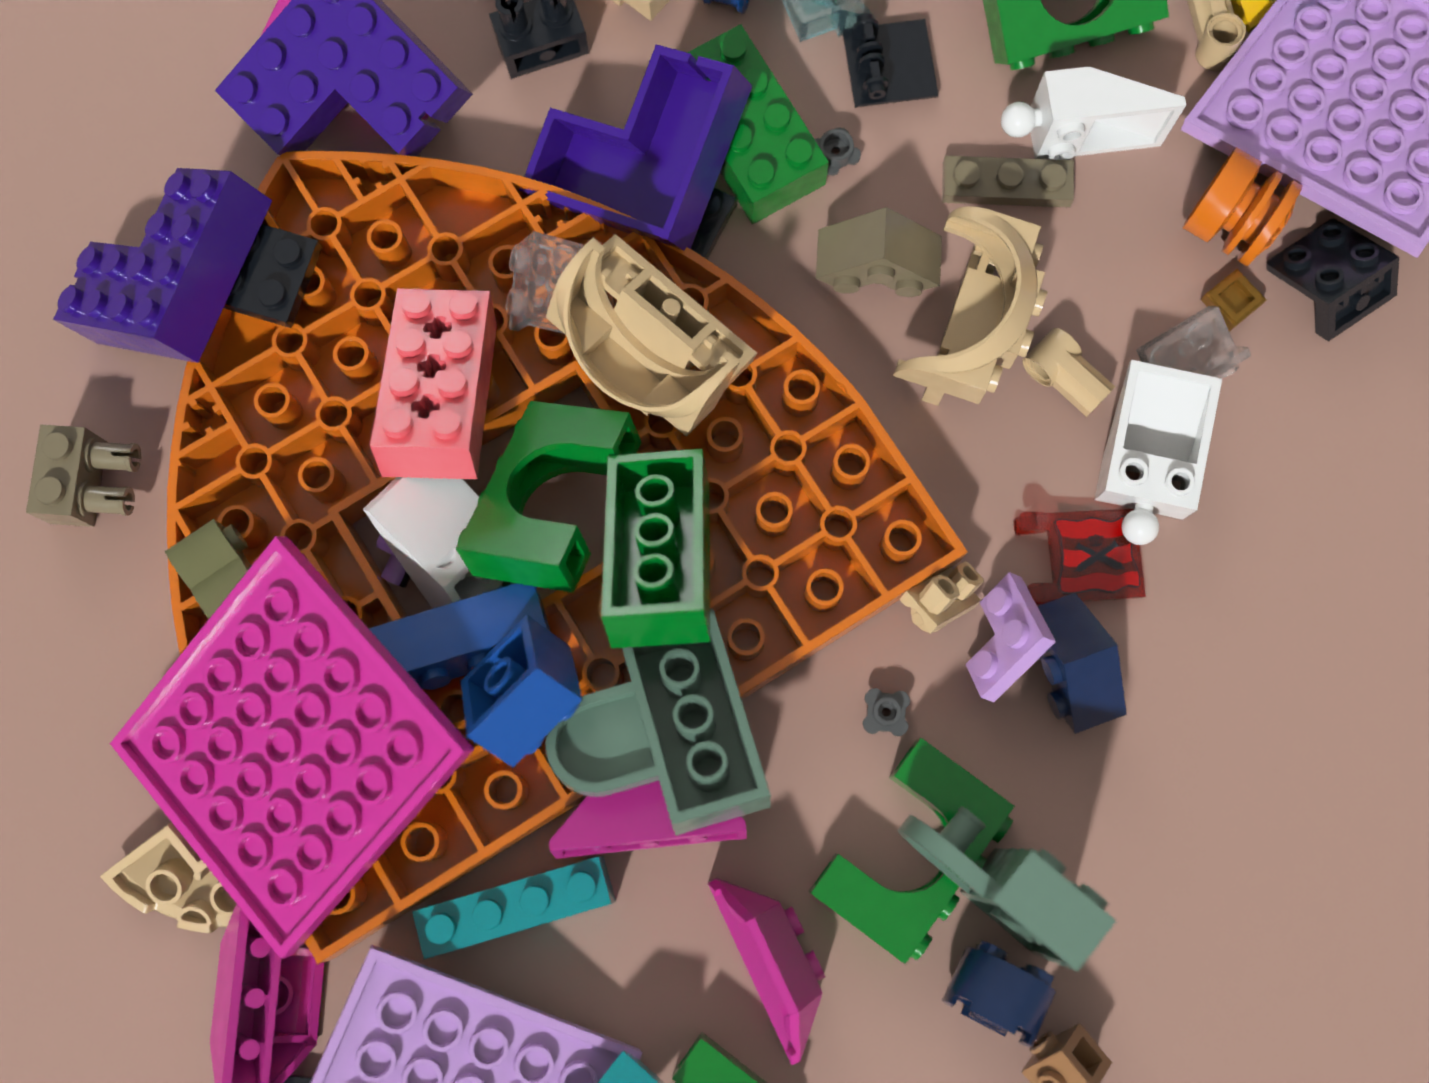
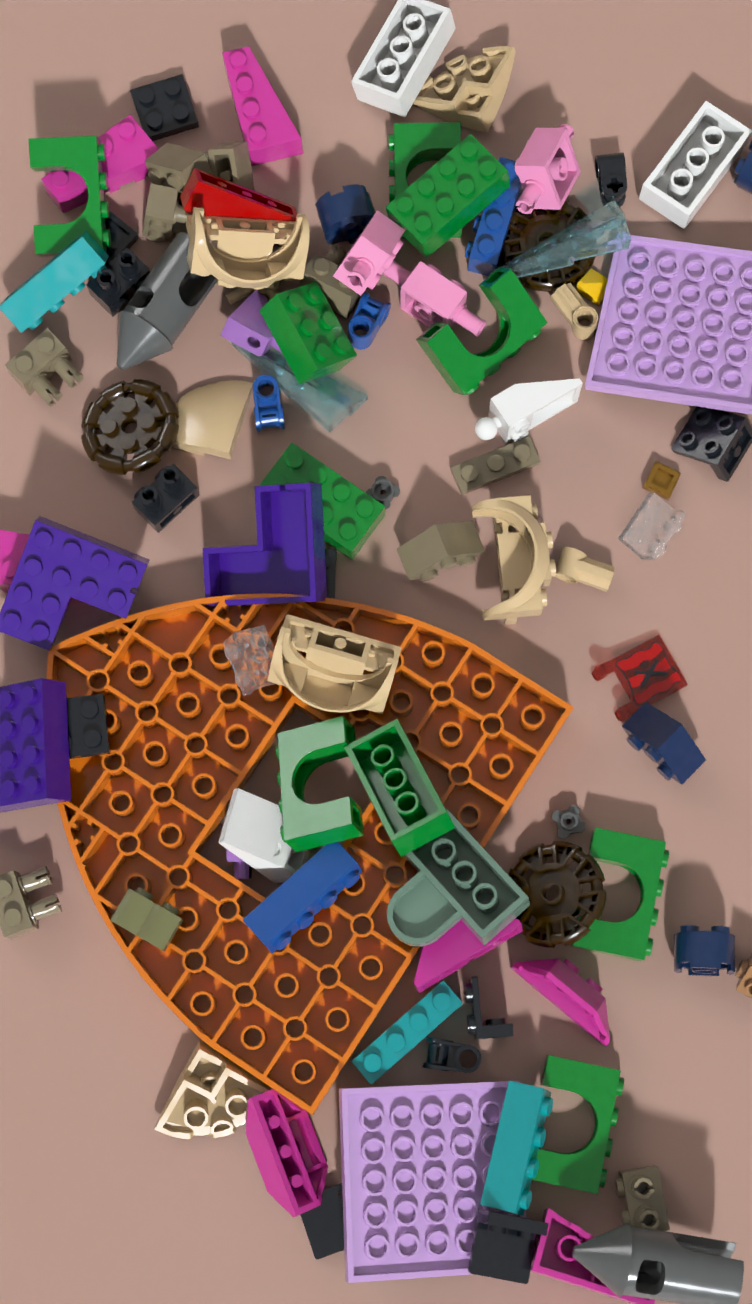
camera: 25 degrees left, 0 degrees up
(288, 746) = (239, 998): dark pink plate -> none
(435, 384) = (223, 749): coral brick -> none
(520, 692) = (361, 904): blue brick -> none
(560, 969) = (448, 1055): none -> black piece
(640, 961) = (494, 1027): none -> black bracket
(839, 821) = (570, 897): none -> dark brown plate
(889, 61) = (389, 421): black hinge -> none
(943, 597) = (571, 739): tan hips -> none
(1018, 638) = (625, 745): lavender plate -> none
(1018, 890) = (686, 888): sand green brick -> none
(1165, 436) = (655, 585): white slope -> none
(1243, 207) = (642, 425): orange wheel -> none

